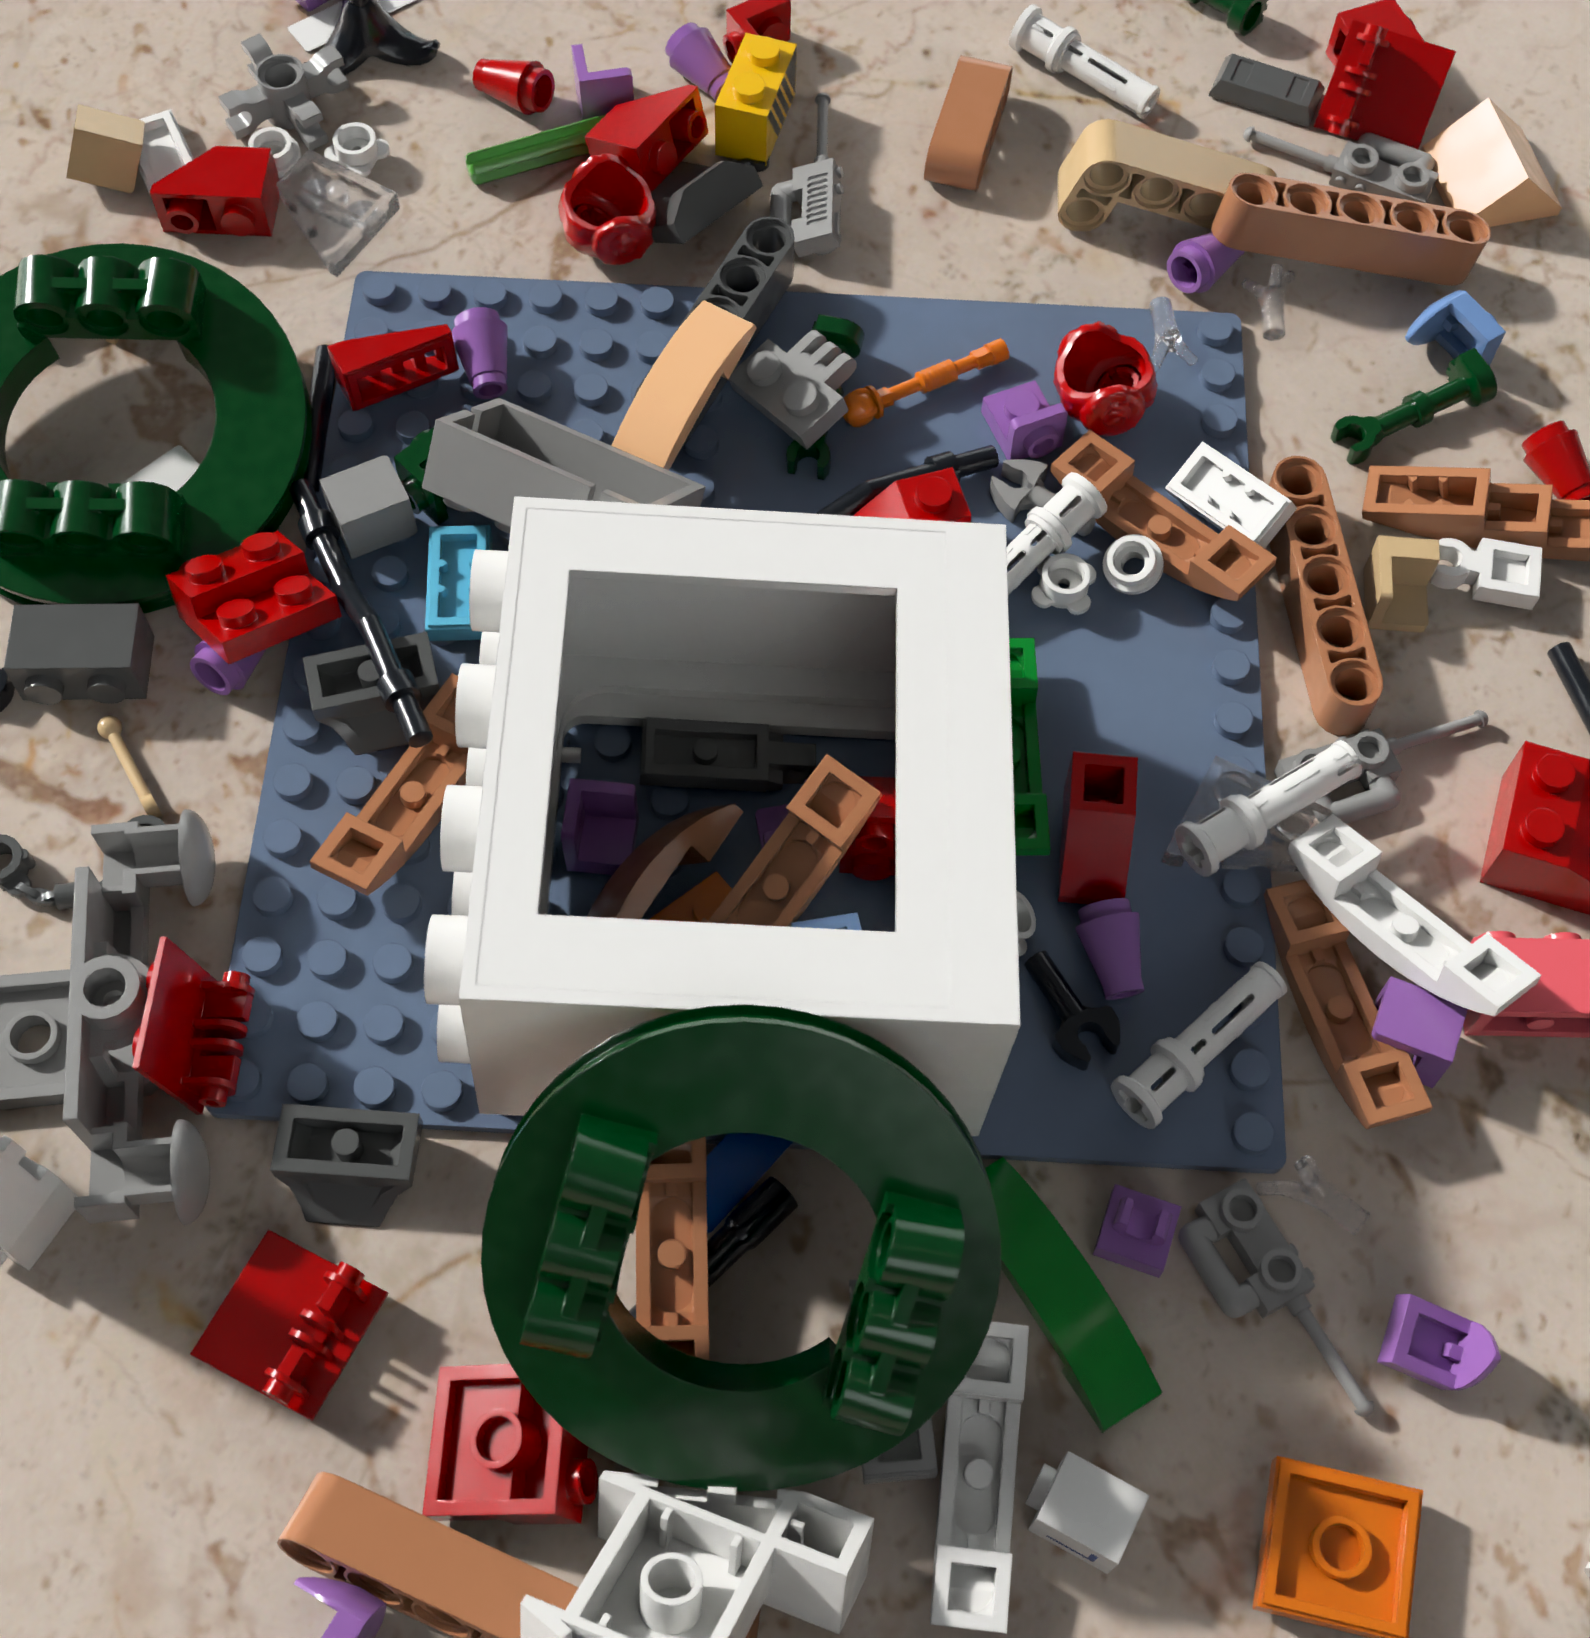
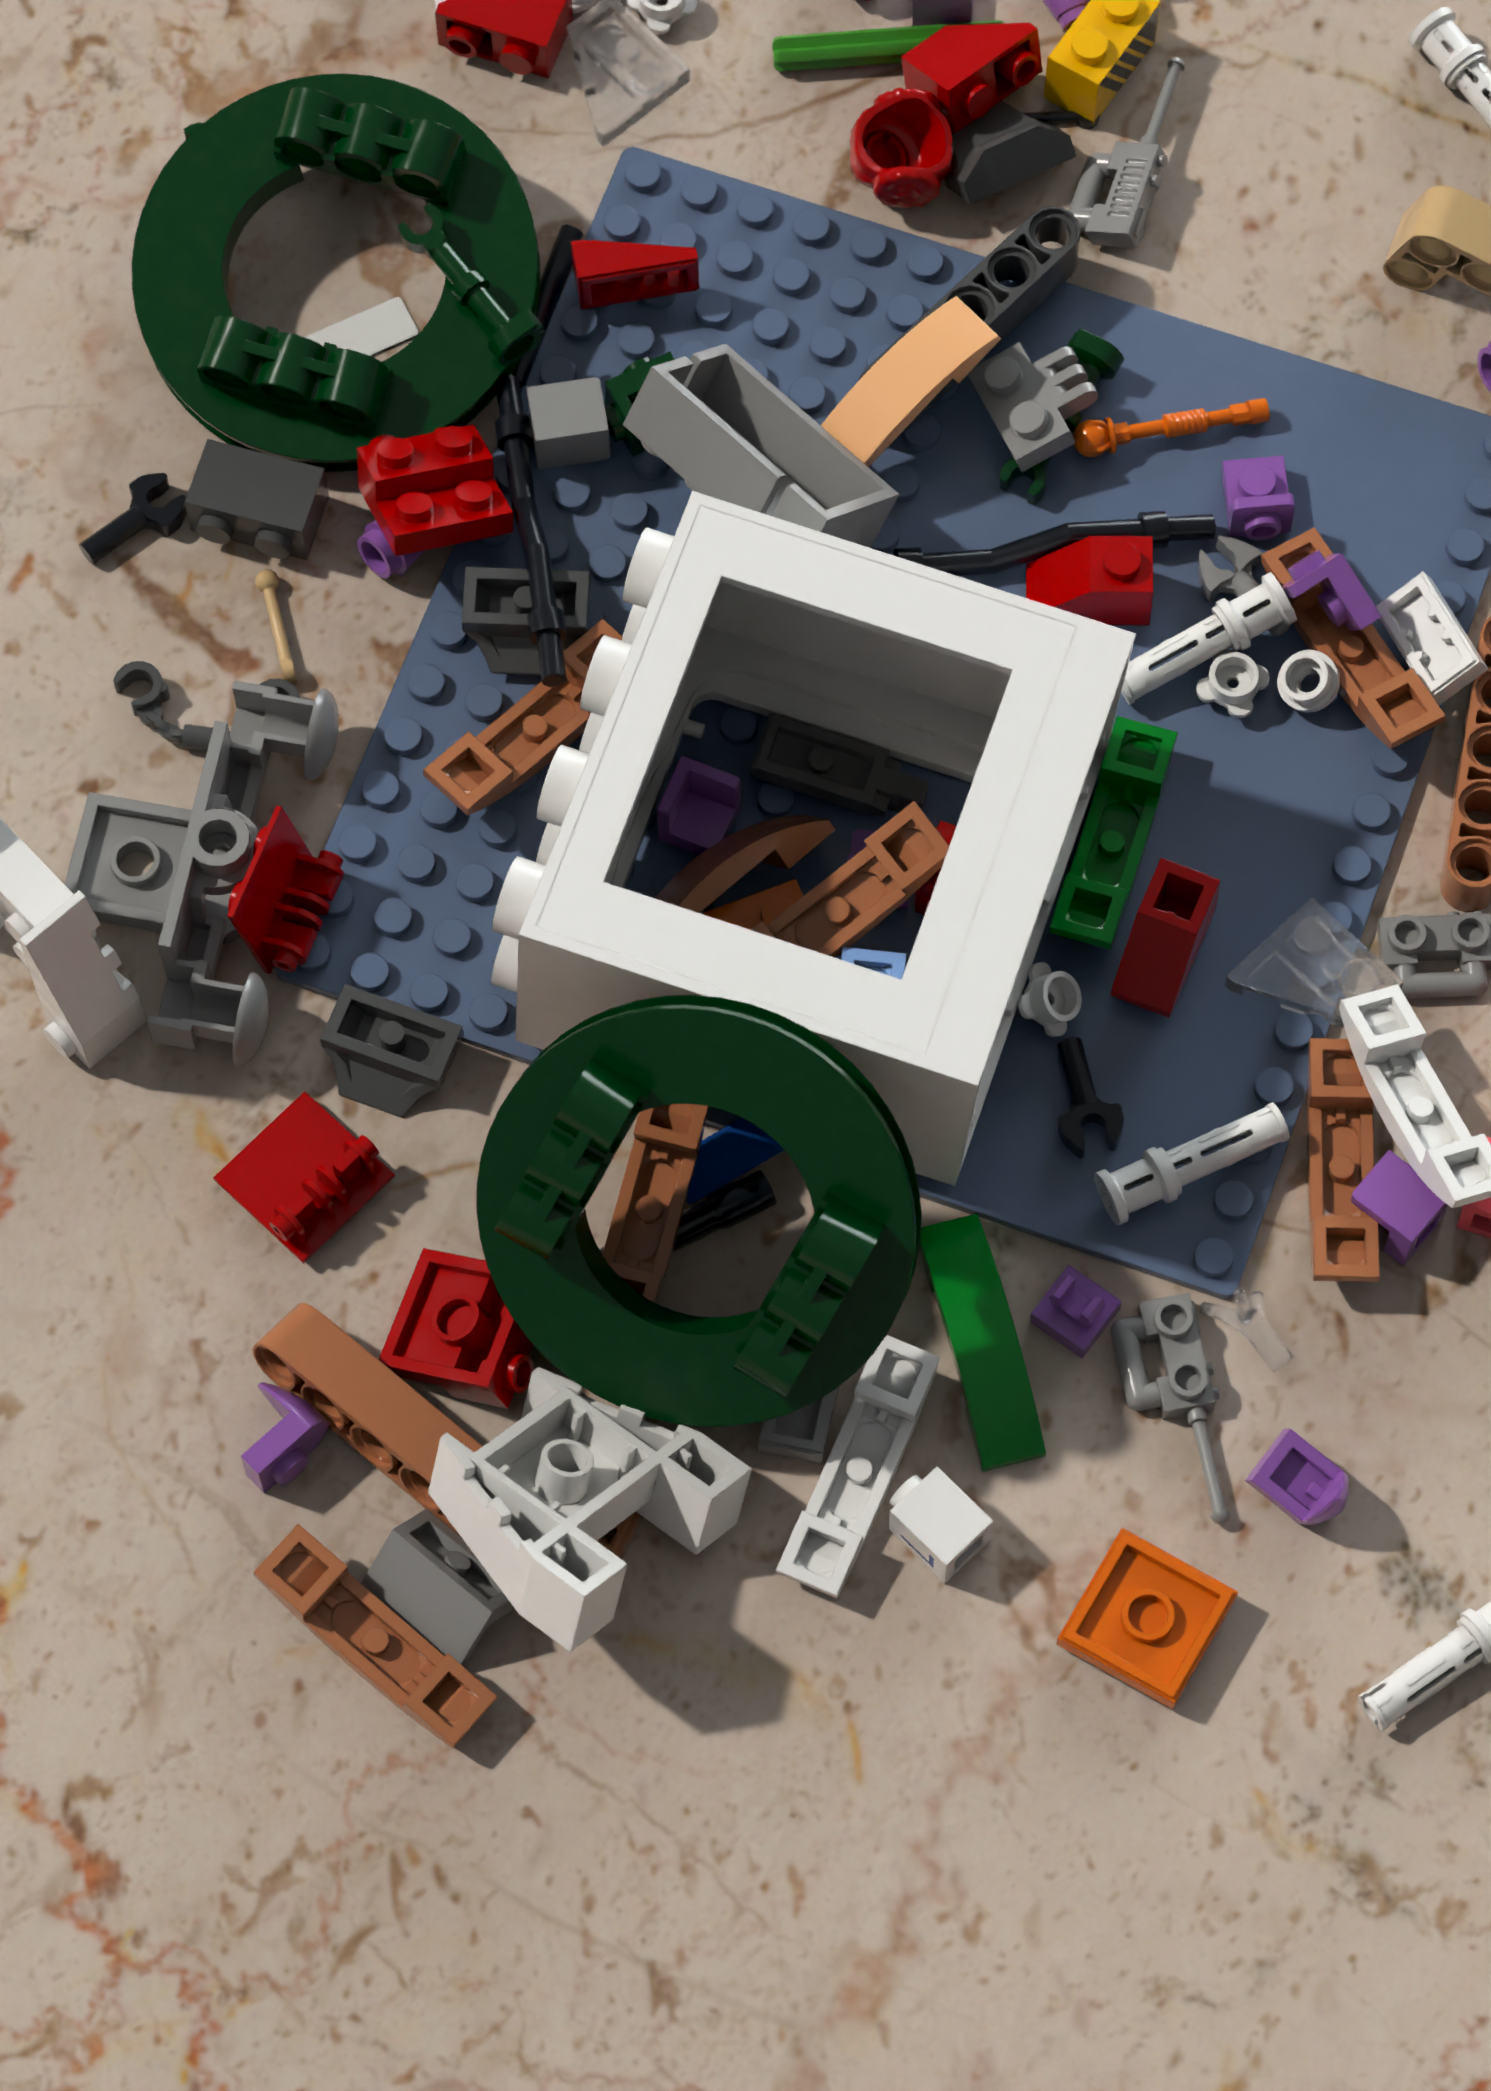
camera: 20 degrees right, 5 degrees up
(291, 438) = (511, 336): none -> dark green piece
(449, 580) = (638, 500): medium azure plate -> none
(482, 348) = (726, 279): medium lavender cone -> none
(968, 123) = (1325, 132): nougat beam -> none
(1104, 378) = (1348, 477): red hair -> none
(1113, 945) = (1144, 1048): medium lavender cone -> none
(1141, 469) = (1343, 594): none -> medium lavender bracket
(1167, 334) = (1443, 440): clear bar -> none
(1245, 820) = (1305, 966): white pin -> none

